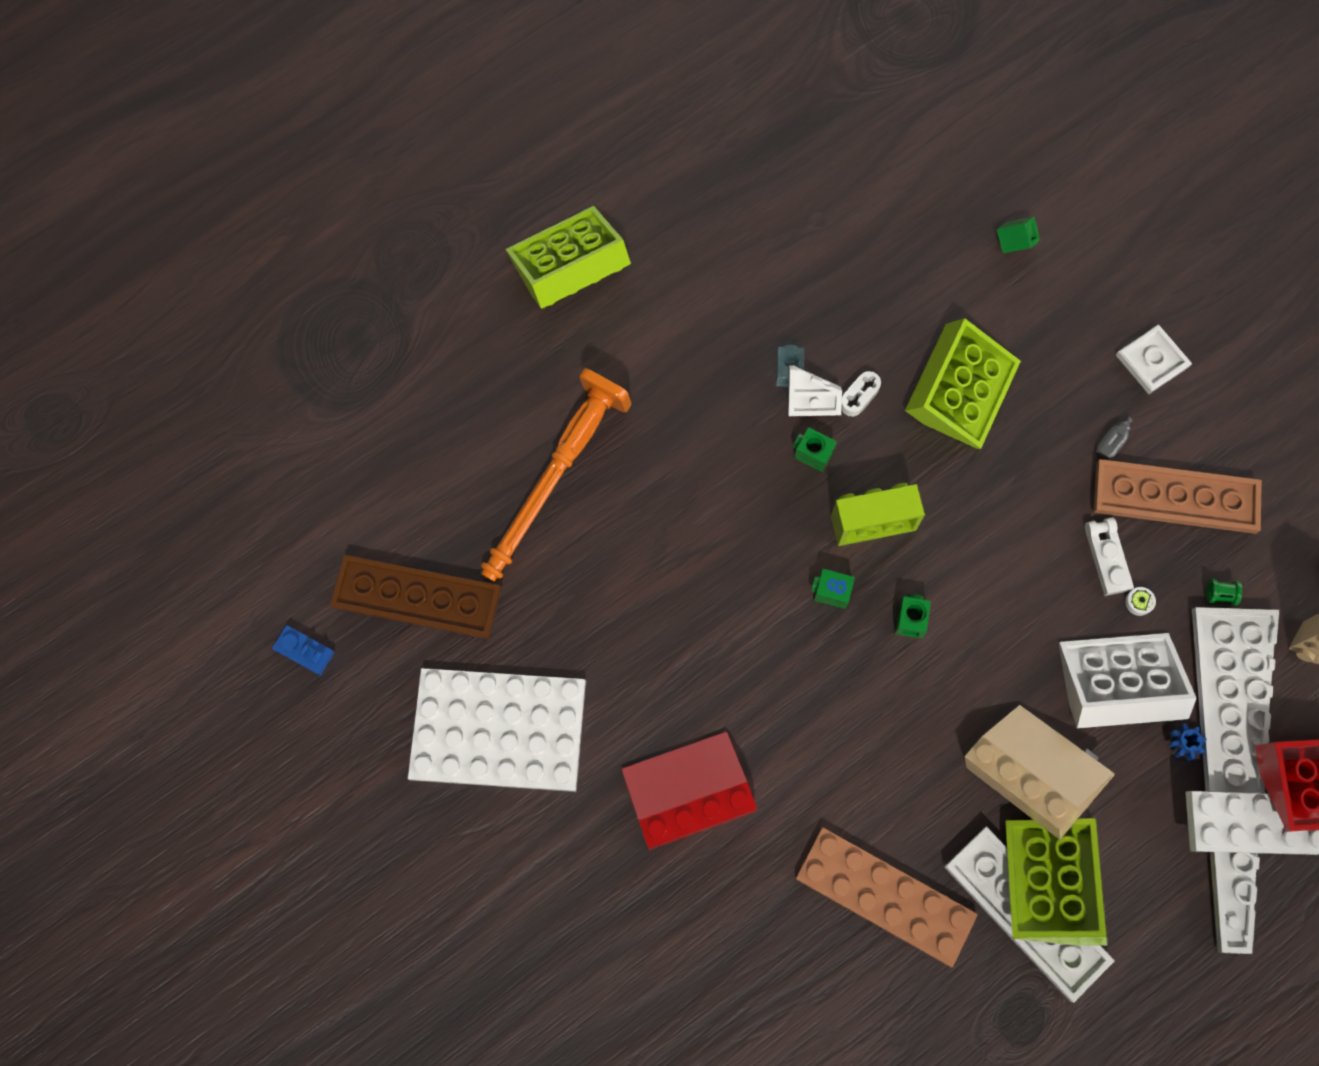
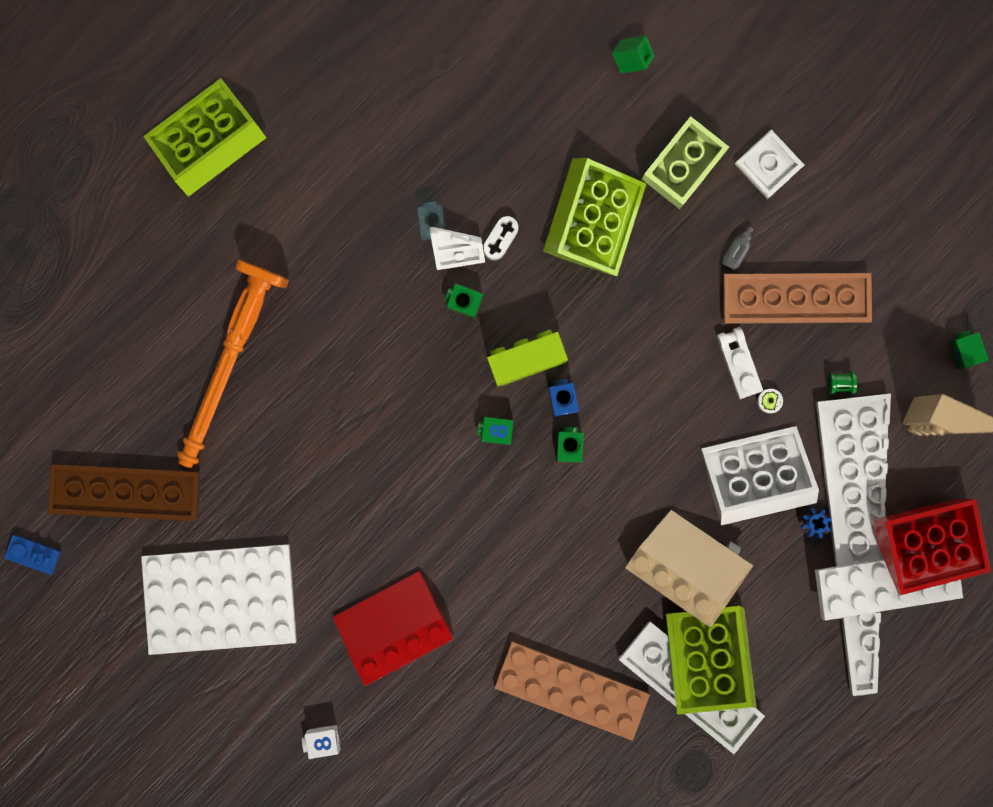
camera: 15 degrees left, 15 degrees up
(586, 910) = (321, 742): none -> white brick
(907, 575) = (560, 409): none -> blue brick
(1065, 342) = (685, 162): none -> yellowish green brick

